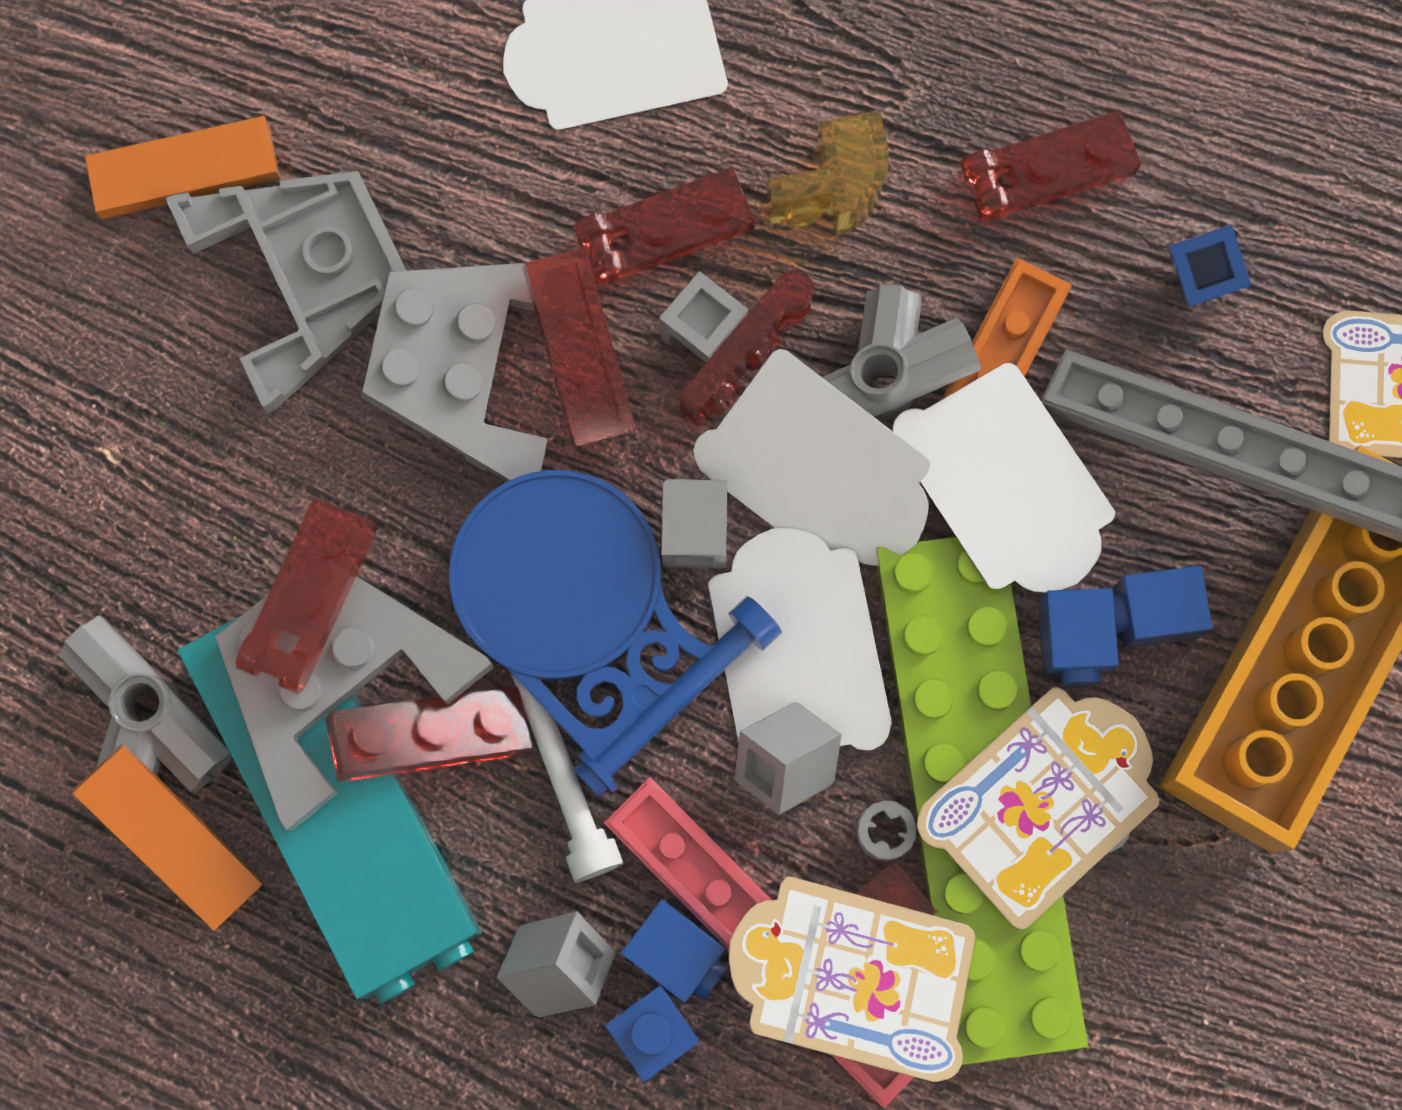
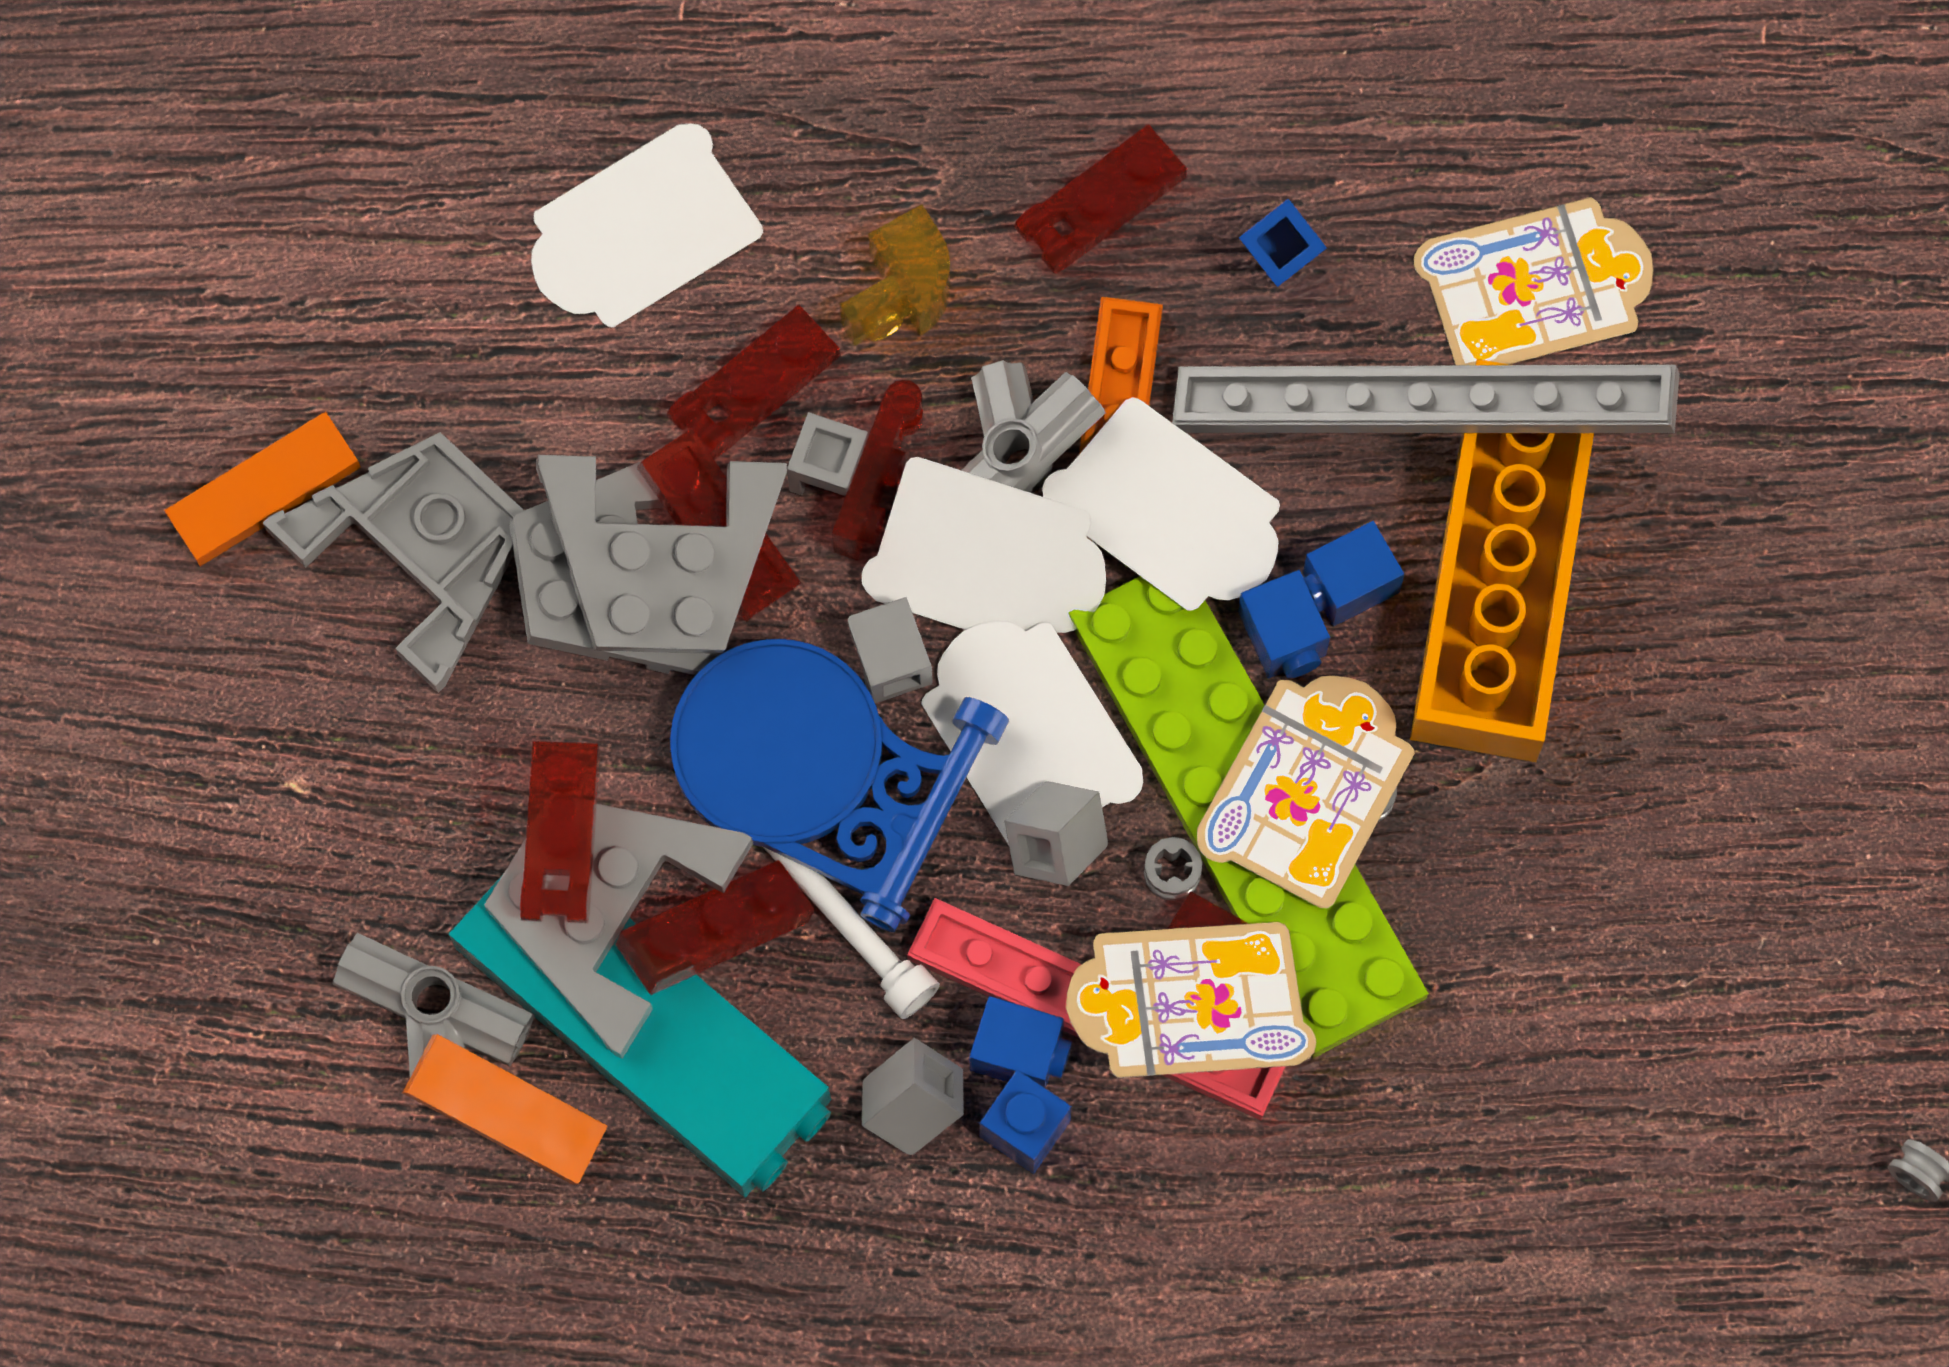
camera: 20 degrees left, 5 degrees down
(499, 383) = (660, 582): none -> light grey wing

